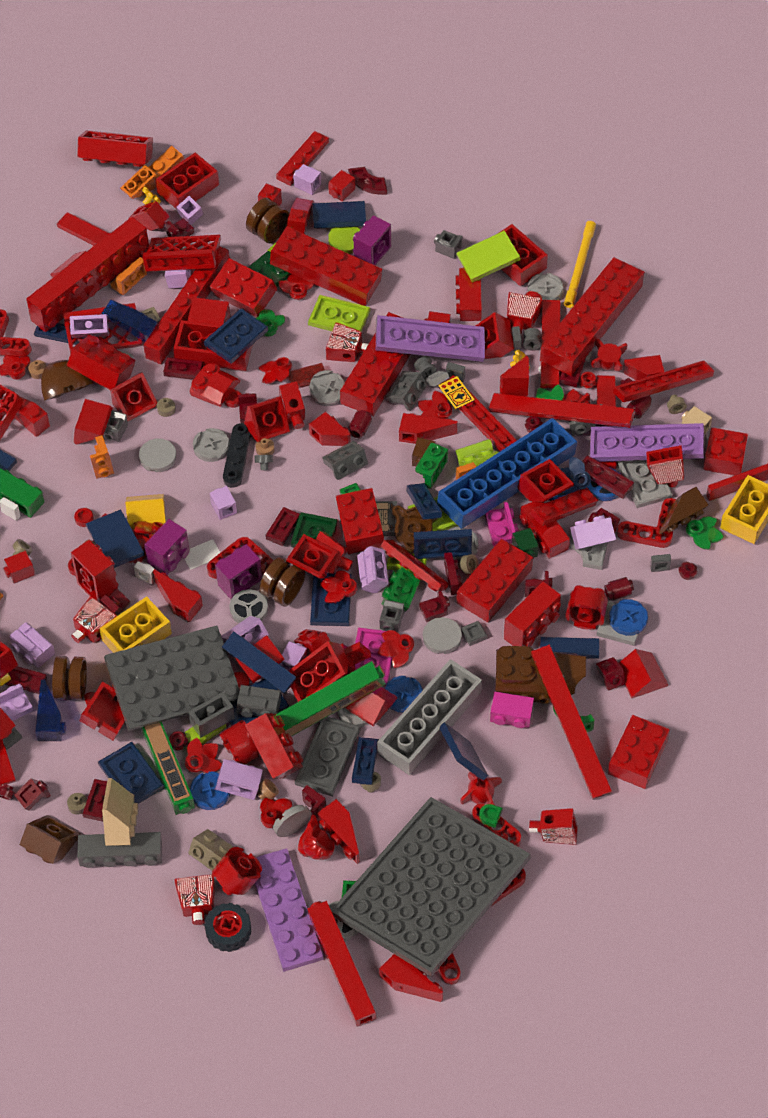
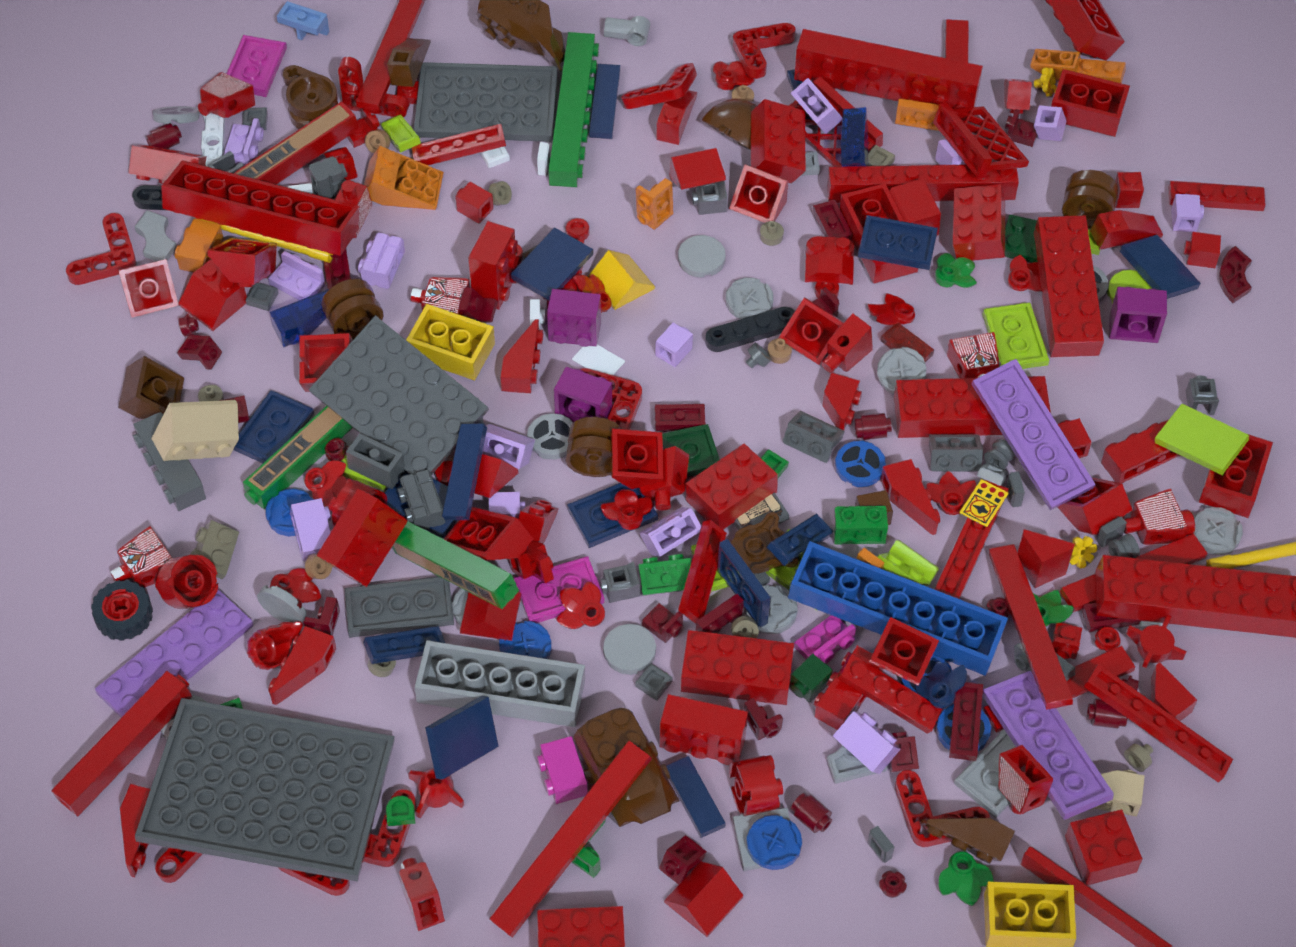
camera: 60 degrees right, 0 degrees up
(382, 445) = (860, 463): none -> blue tile

